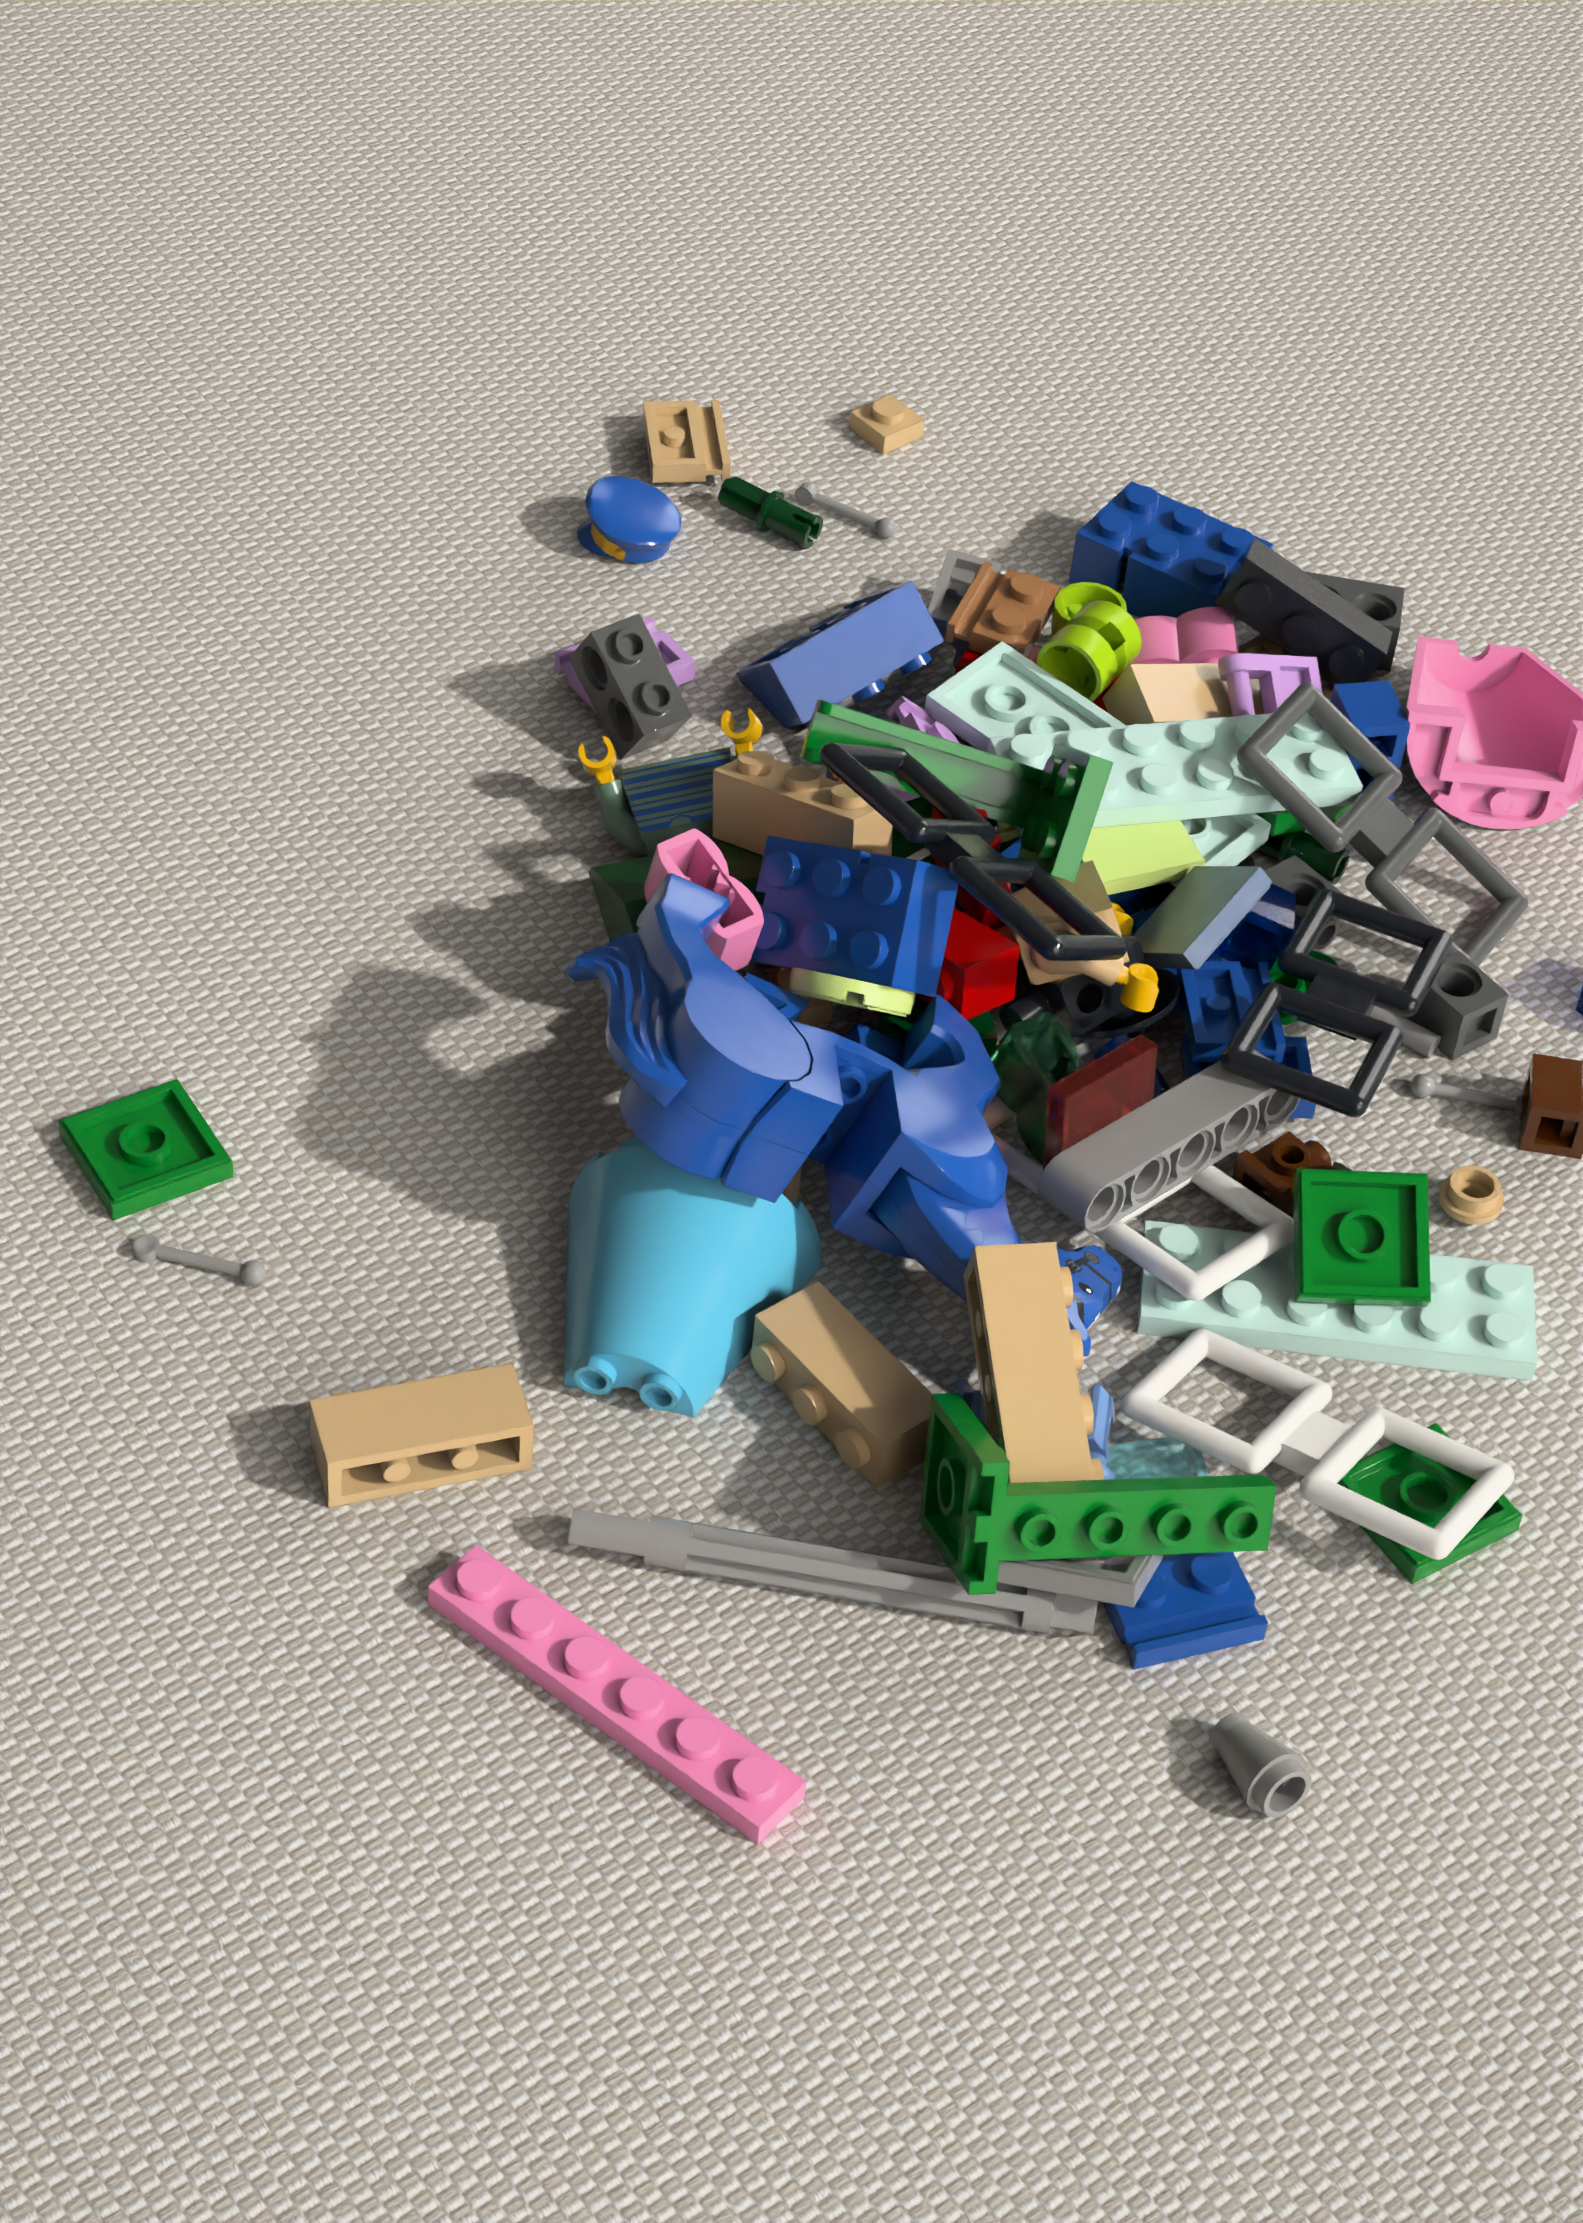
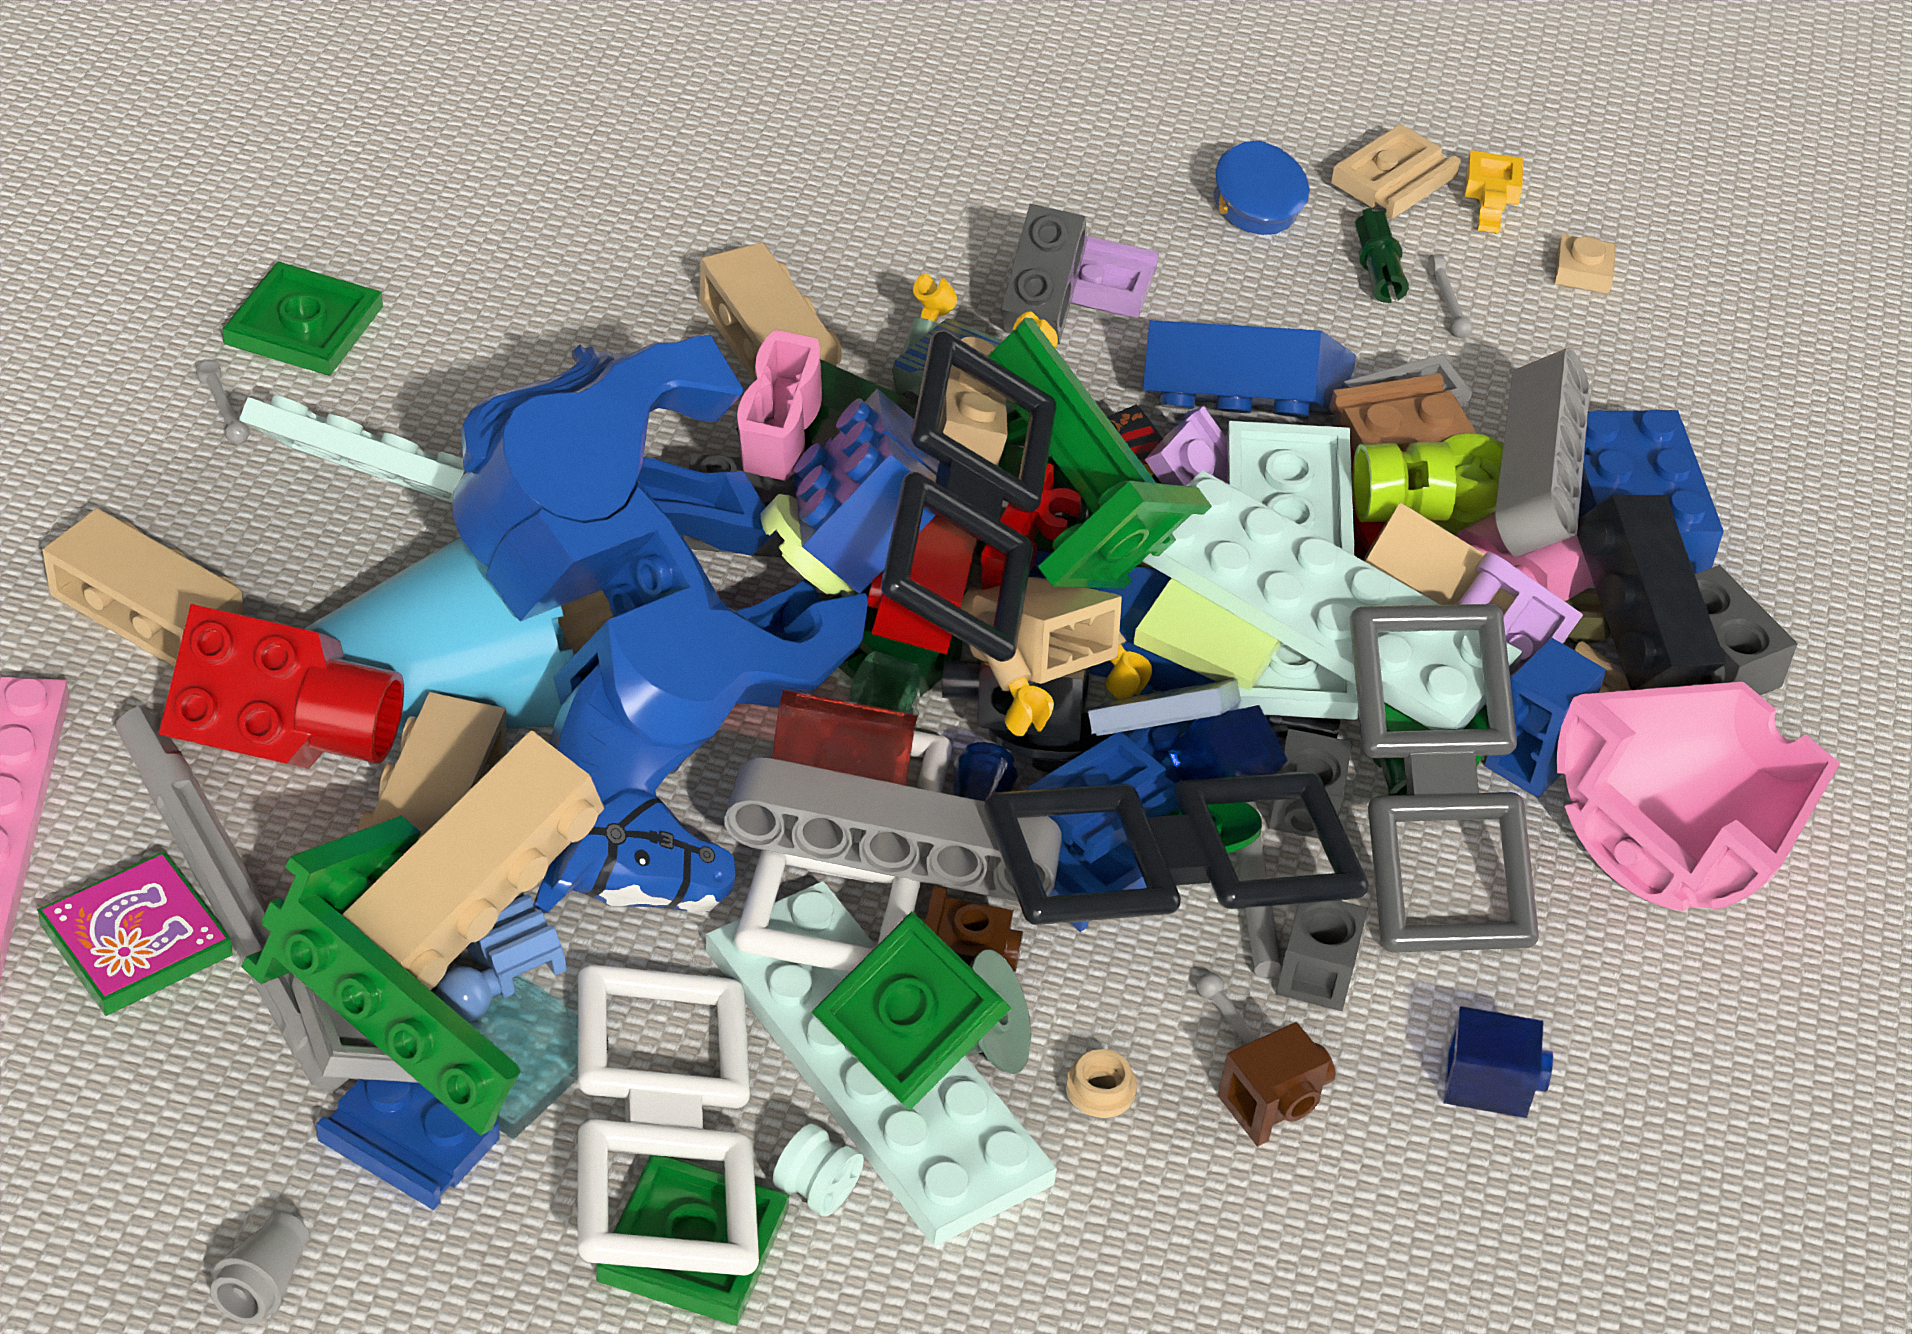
camera: 50 degrees right, 0 degrees up
(459, 1177) = (352, 447): none -> light aqua plate
(488, 875) = (752, 297): none -> tan brick
(672, 1406) = (278, 692): none -> red brick
(757, 402) = (1494, 182): none -> yellow plate
(815, 1659) = (135, 933): none -> tile
(1131, 566) = (1543, 453): none -> light grey beam
(1434, 1390) = (818, 1170): none -> light aqua wheel

